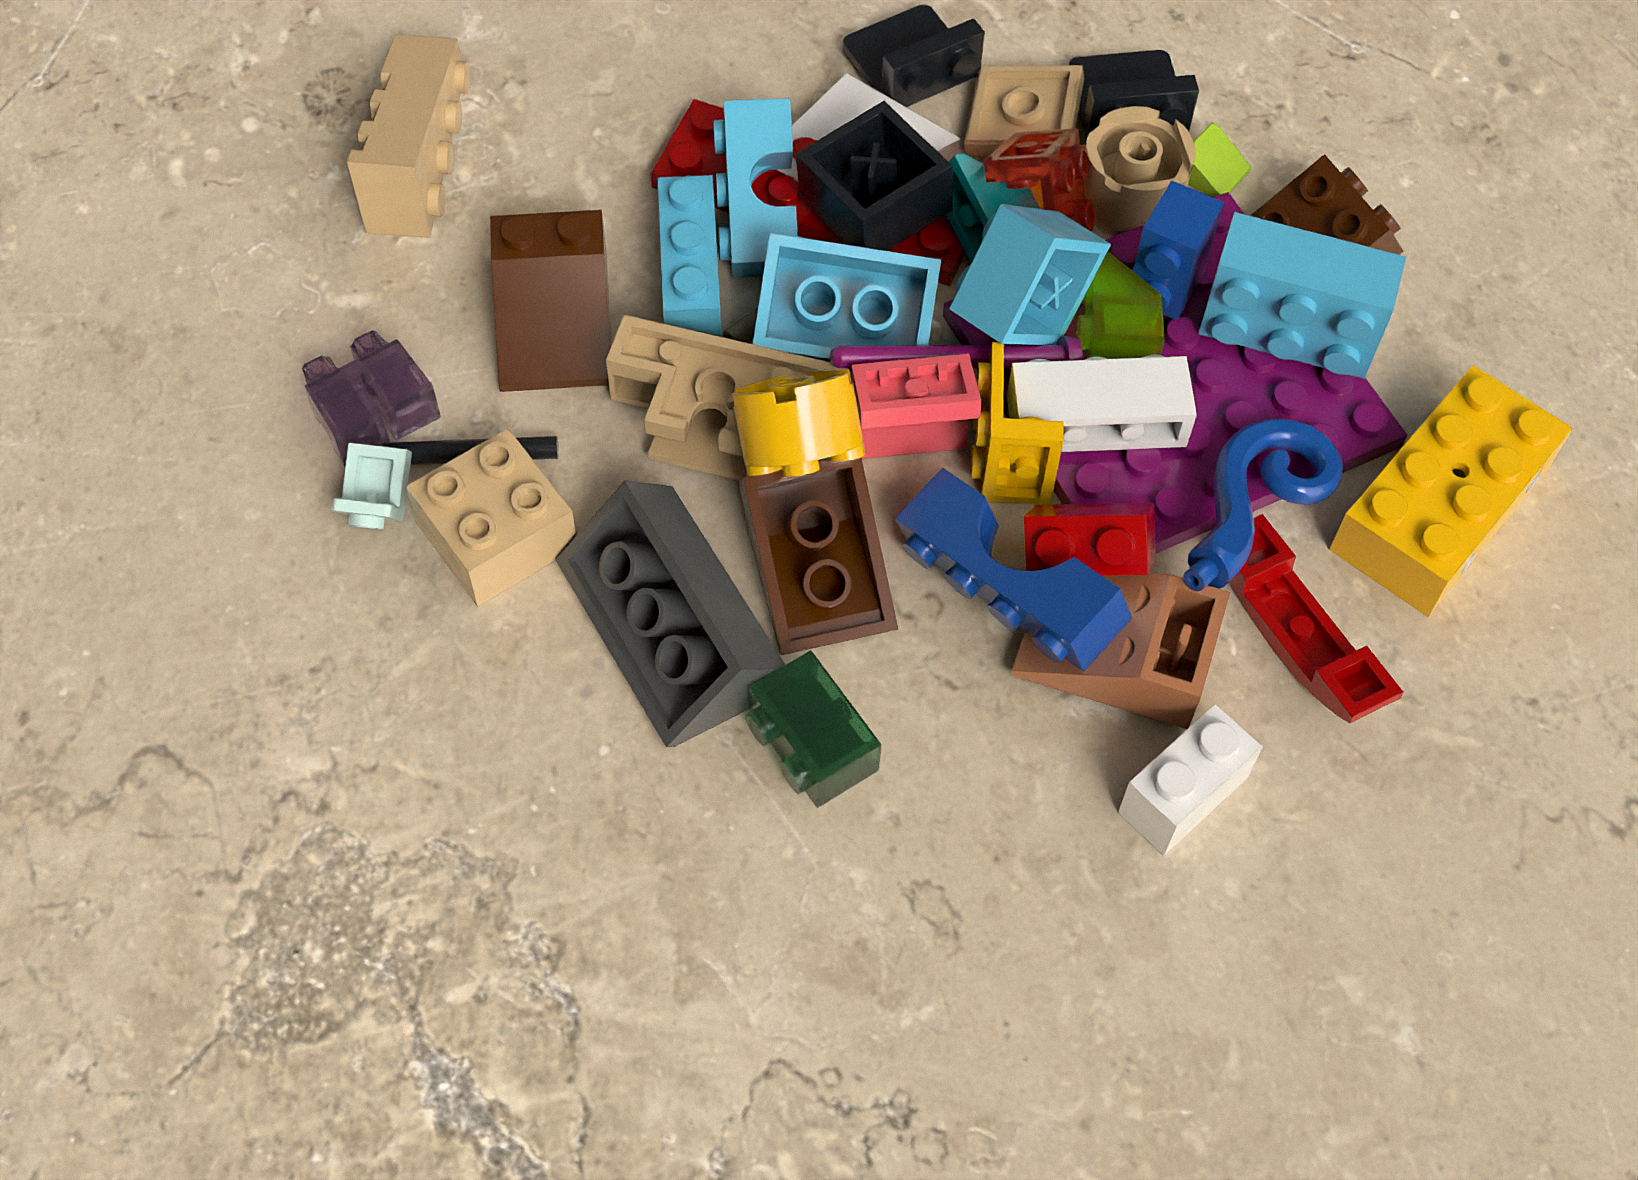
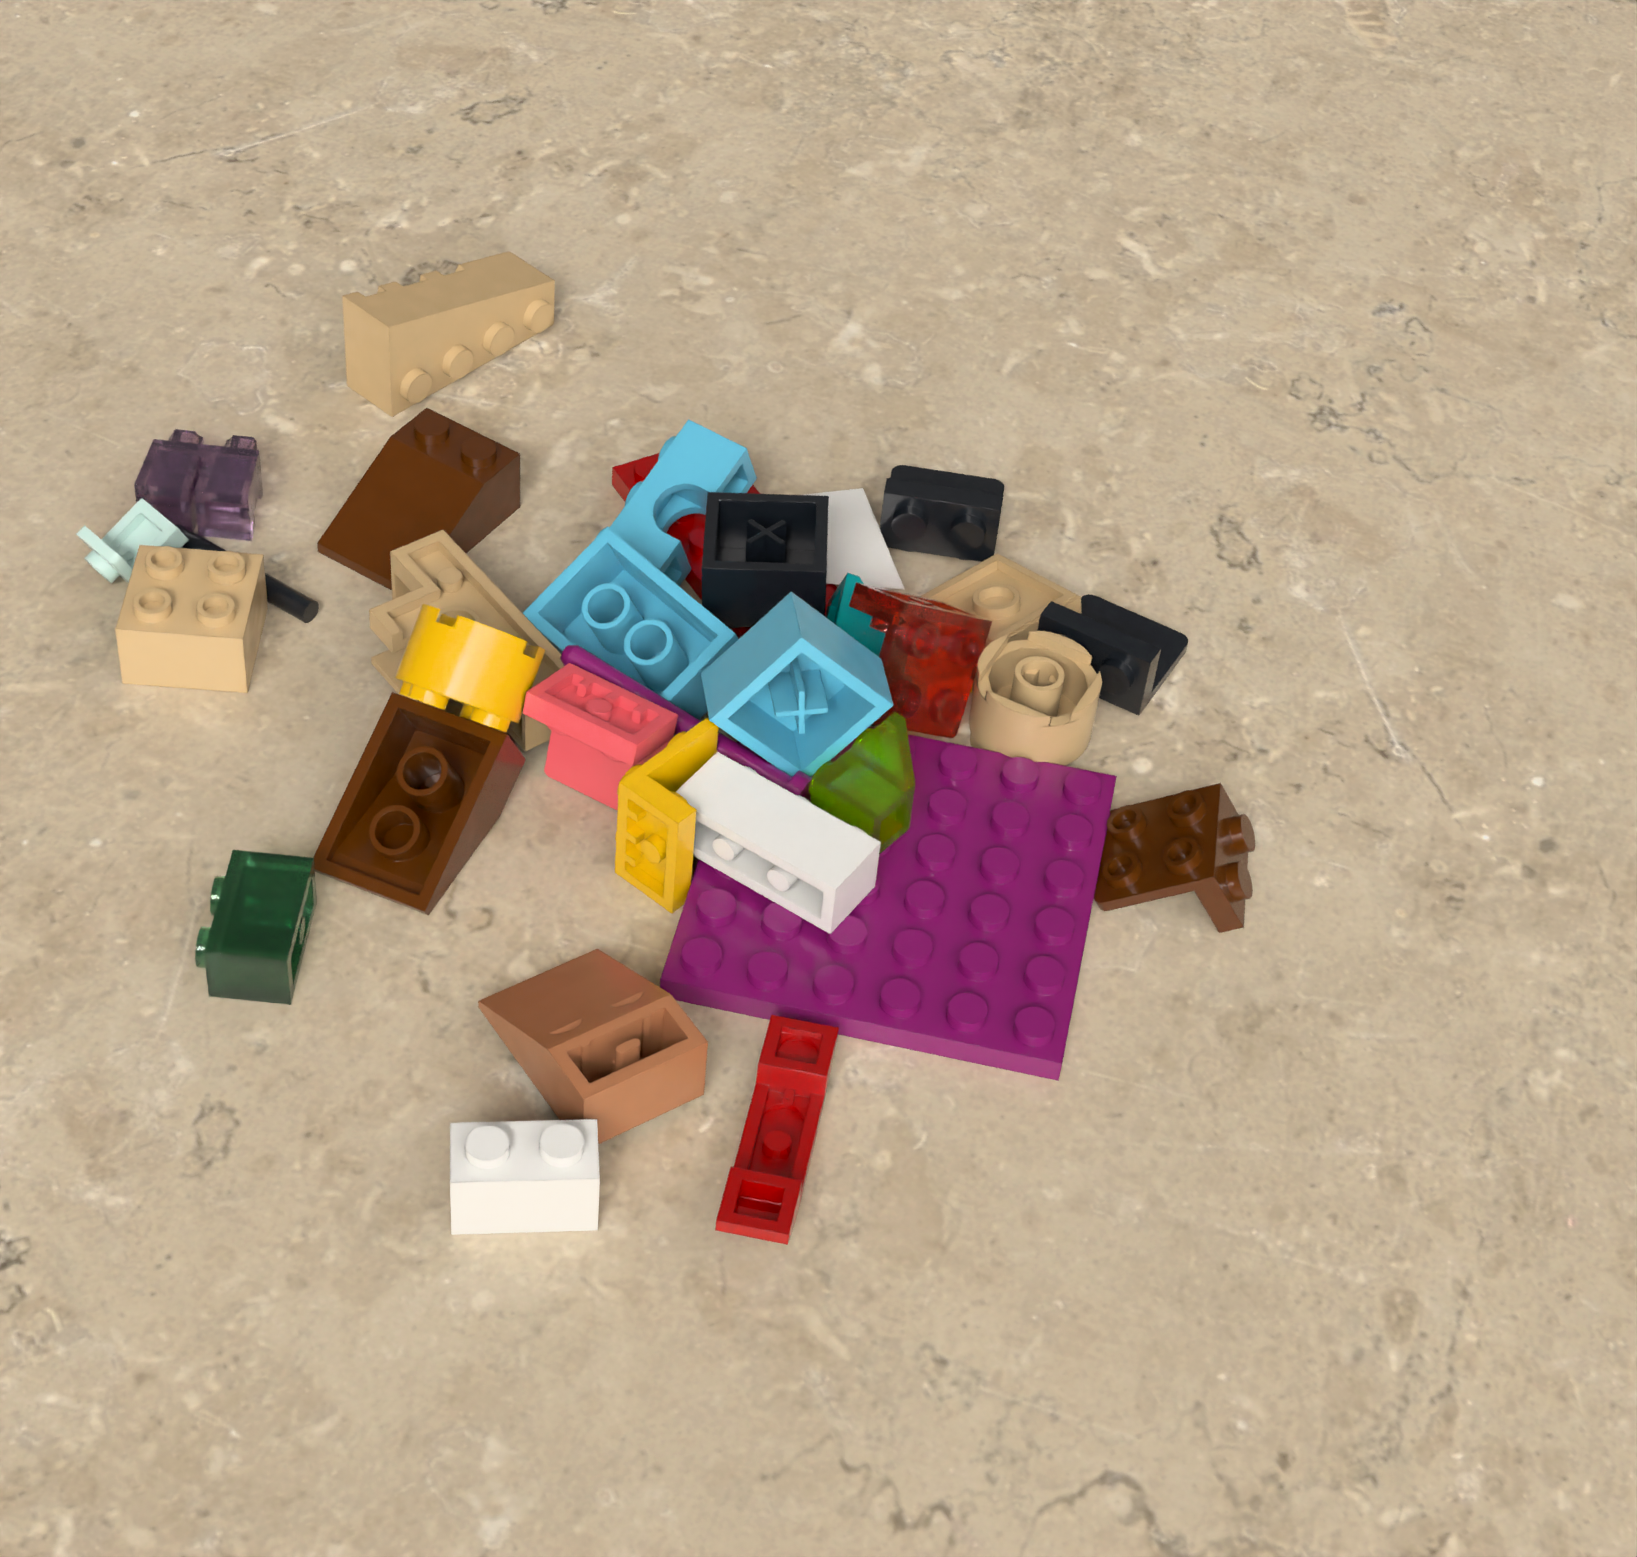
camera: 35 degrees right, 15 degrees down
(667, 611) = (252, 765): dark grey slope -> none
(689, 254) = (555, 532): medium azure brick -> none
(1063, 607) = (543, 952): blue arch -> none
(1104, 537) = (645, 935): red brick -> none
(1177, 245) = (967, 759): blue brick -> none
(1217, 163) = (1131, 747): lime slope -> none
(1230, 542) = (754, 1006): blue plant -> none
(1302, 295) = (1046, 863): medium azure brick -> none
(1422, 522) = (990, 1148): yellow piece -> none

